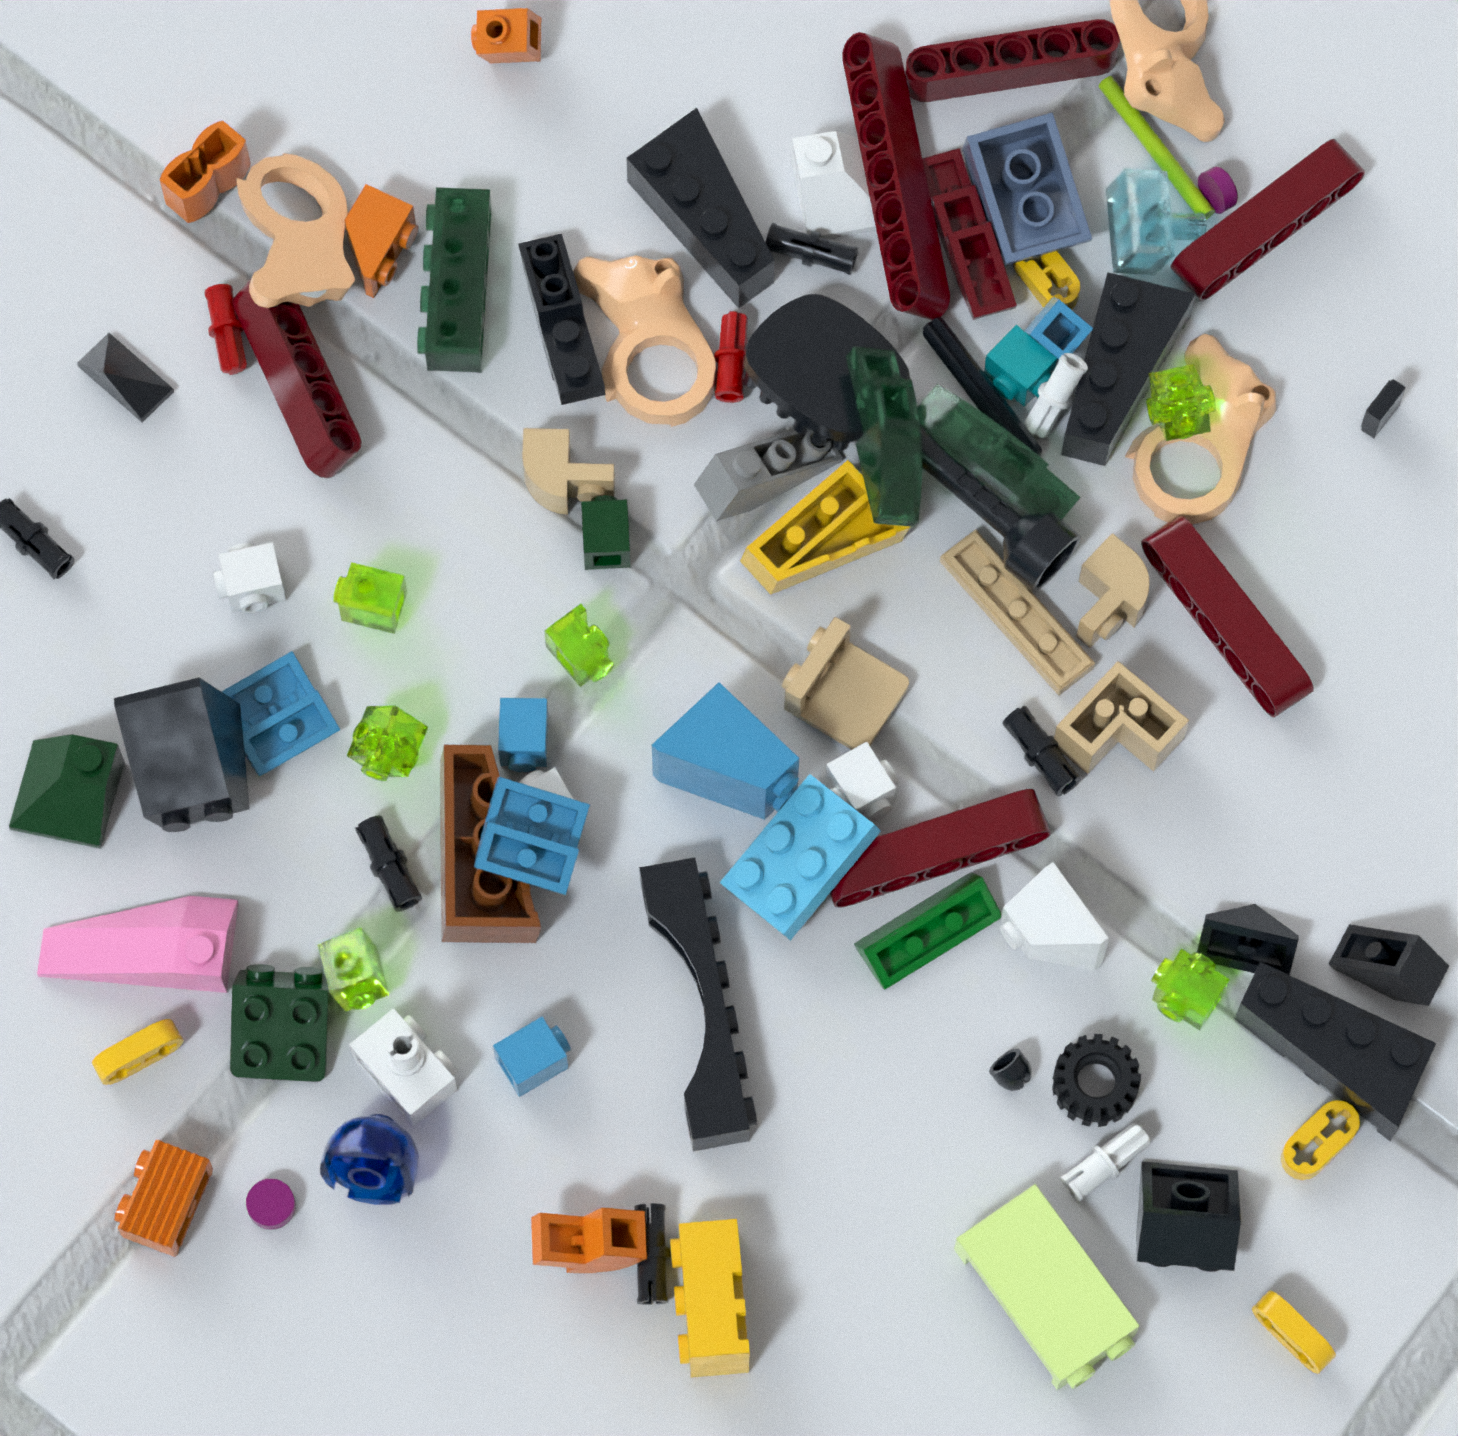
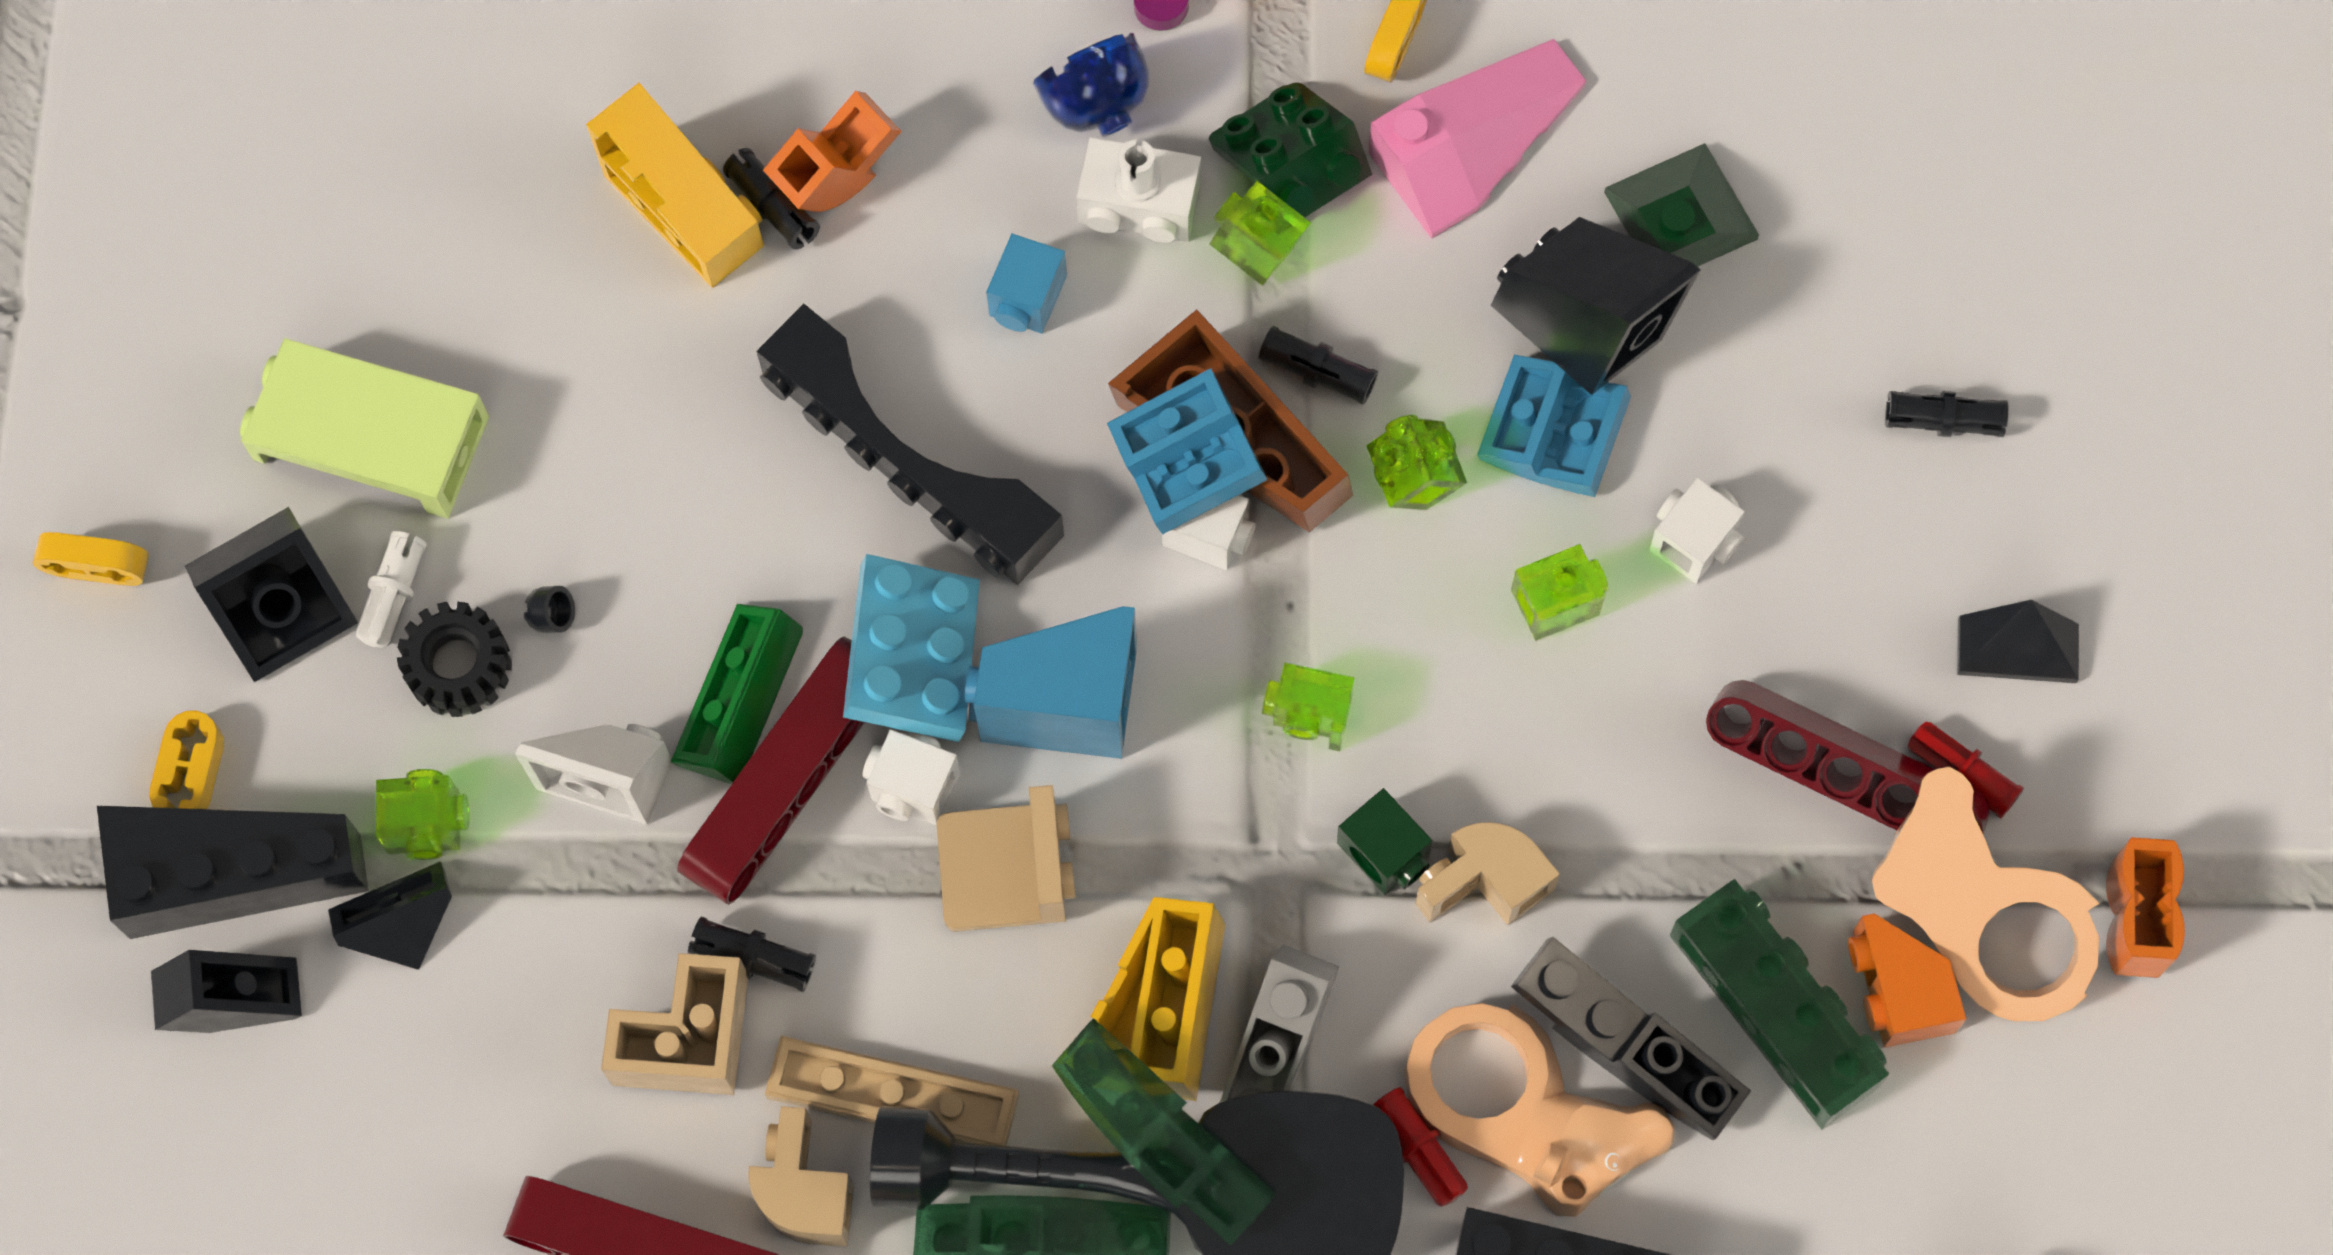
camera: 145 degrees right, 0 degrees up
(523, 733) = (1293, 576): dark azure brick -> none

